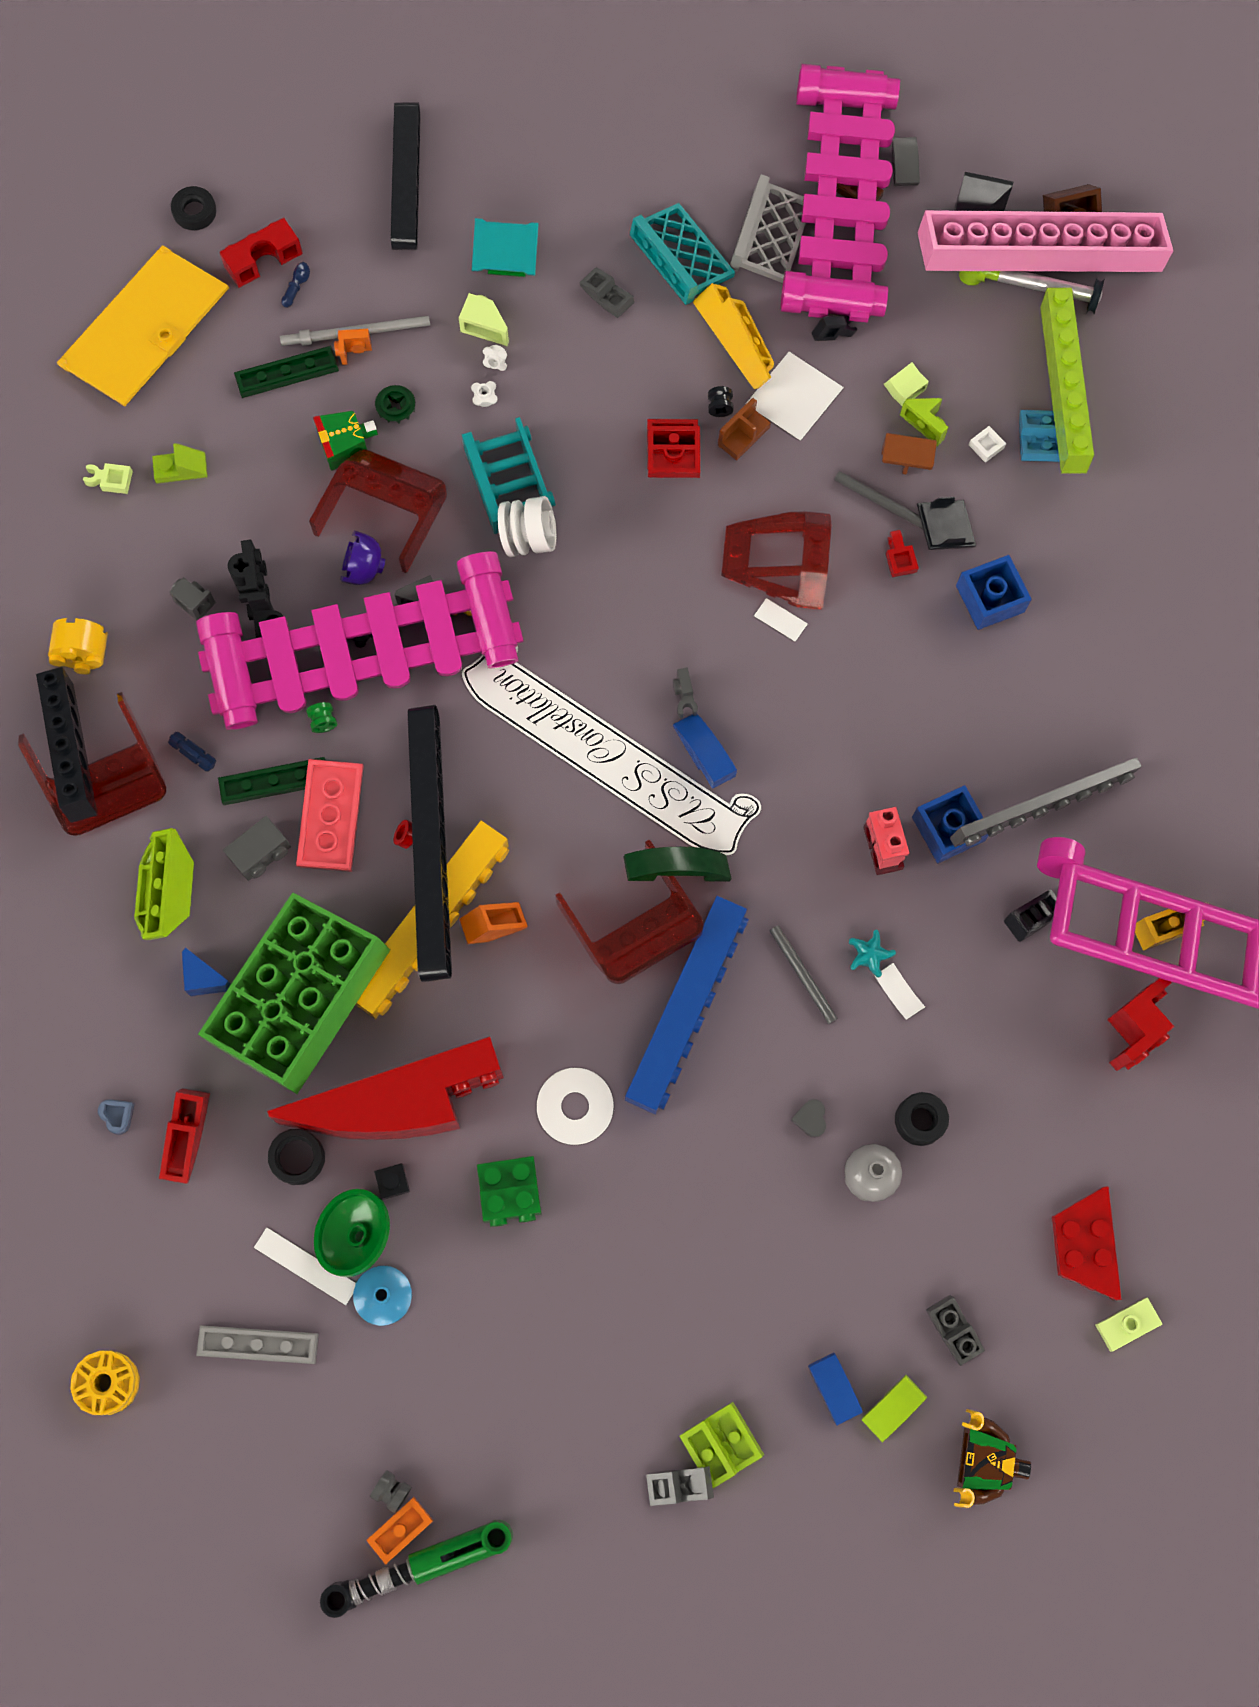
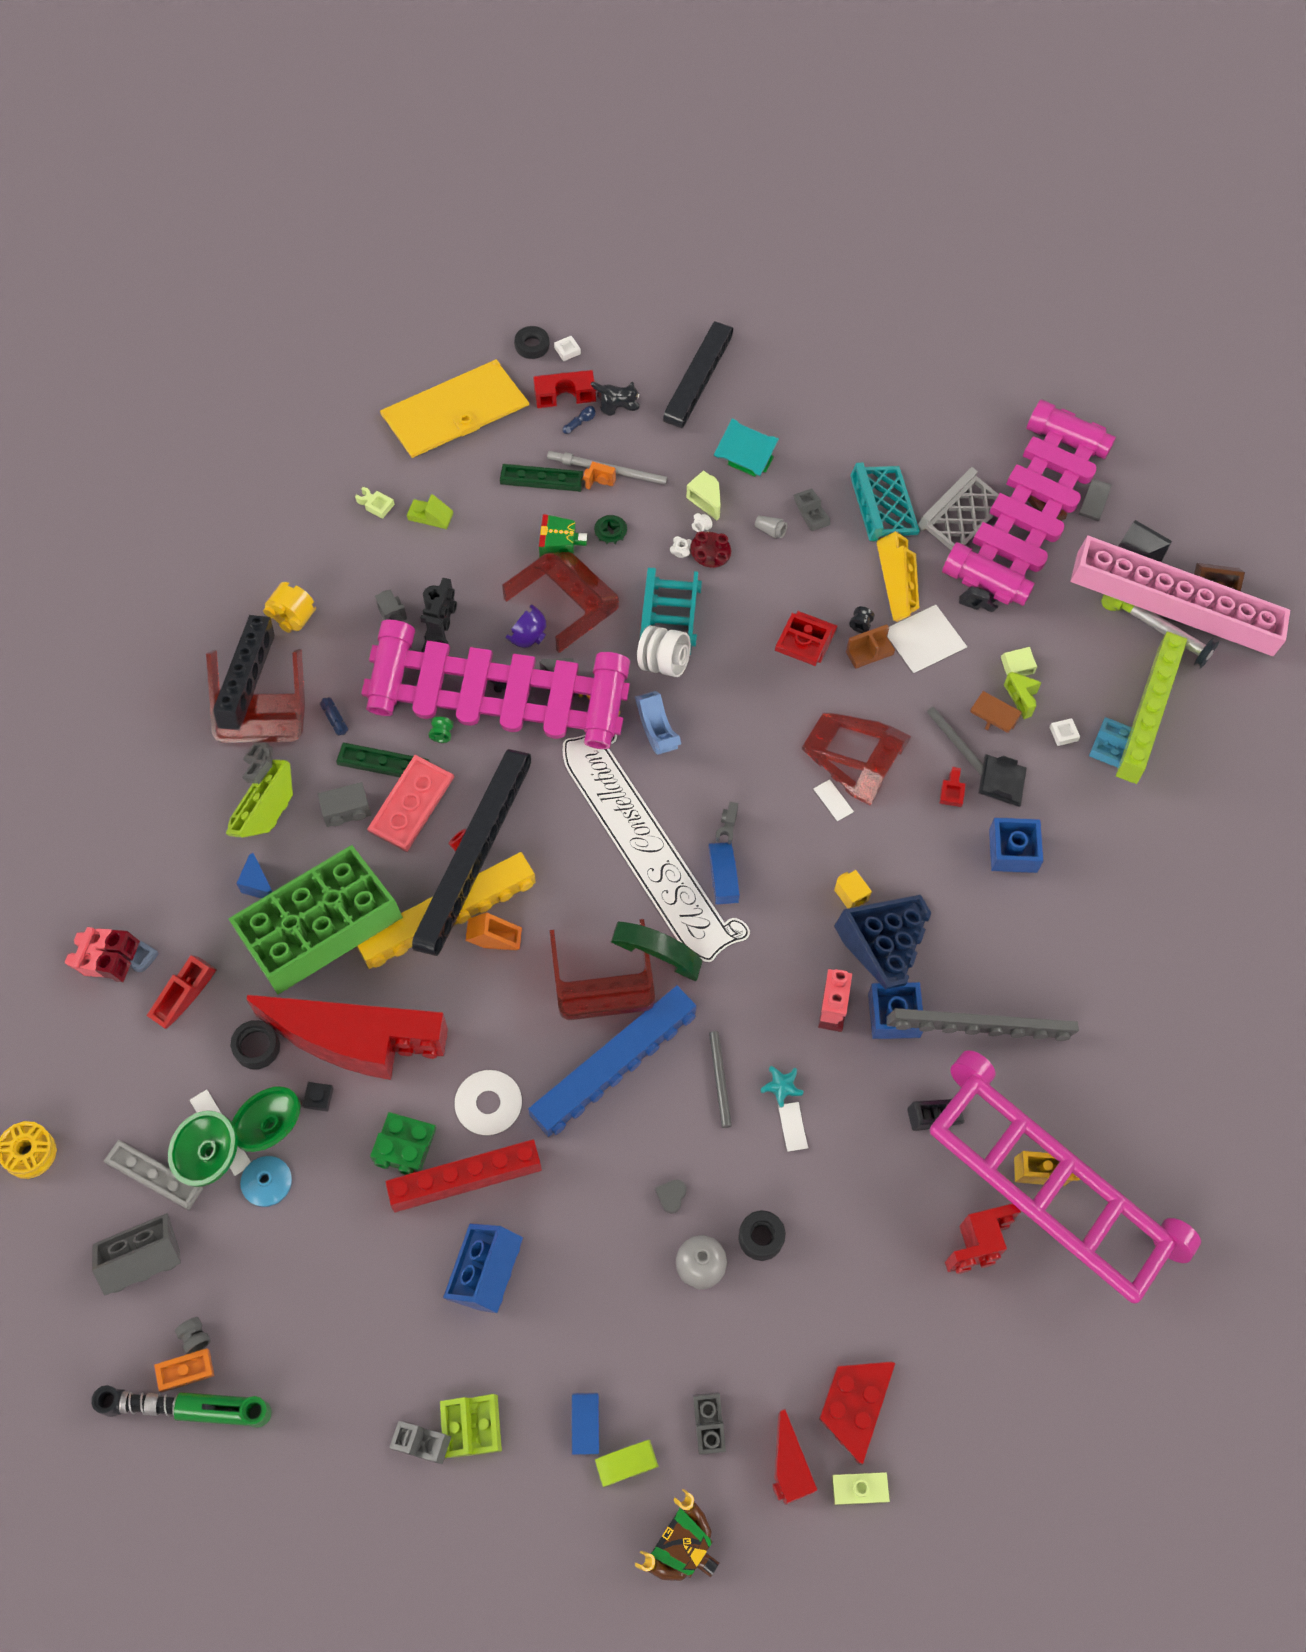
camera: 25 degrees right, 10 degrees down
(74, 1132) = (103, 953): none -> hips
(135, 832) = (260, 758): none -> dark grey tile
(239, 200) = (567, 348): none -> white plate
(284, 1437) = (135, 1255): none -> dark grey slope
(285, 1296) = (192, 1144): none -> green dish
(326, 239) = (615, 397): none -> black animal
(518, 383) = (710, 549): none -> dark red dish
(556, 613) = (656, 724): none -> medium blue arch
(572, 329) = (772, 526): none -> light grey cone
(591, 1196) = (463, 1175): none -> red brick
(657, 1281) = (483, 1267): none -> blue slope
(847, 712) = (852, 889): none -> yellow brick
(906, 750) = (885, 936): none -> dark blue slope
(1054, 1336) = (791, 1469): none -> red slope

